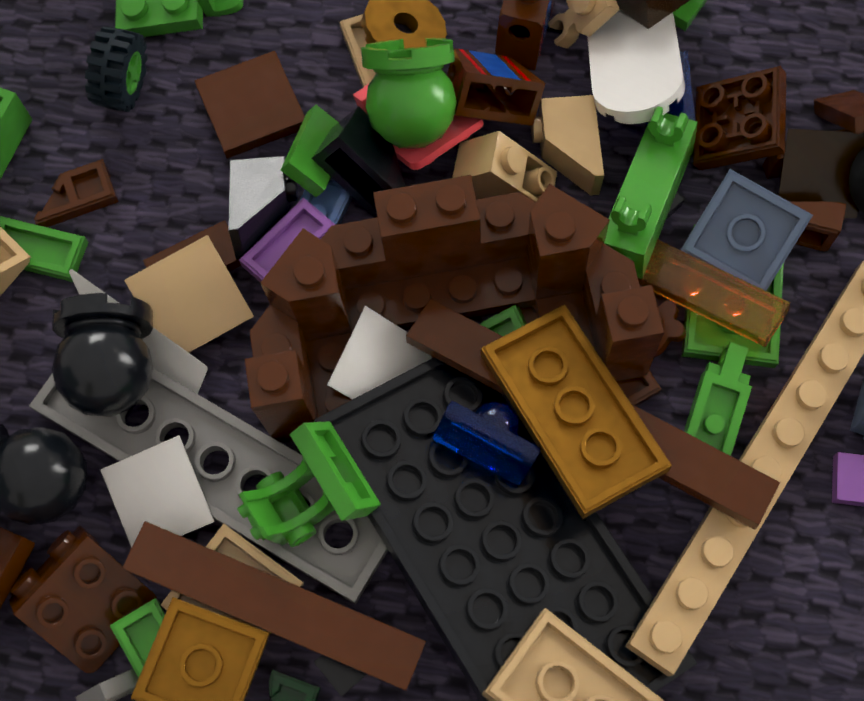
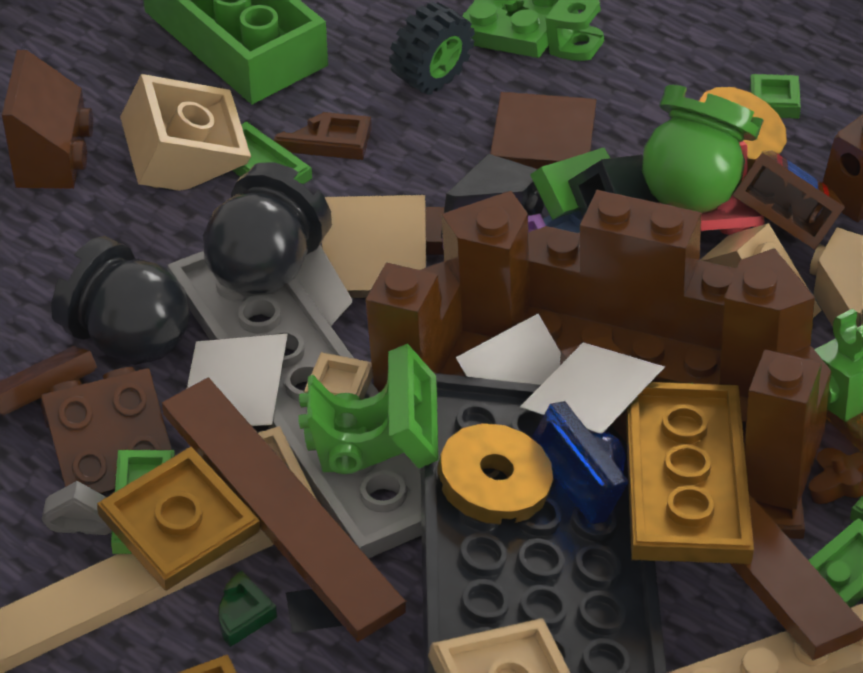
camera: 30 degrees right, 25 degrees down
(245, 454) = (343, 374): none -> tan tile
(449, 469) = (499, 449): none -> pearl gold tile
(457, 364) = (594, 385): none -> white sticker

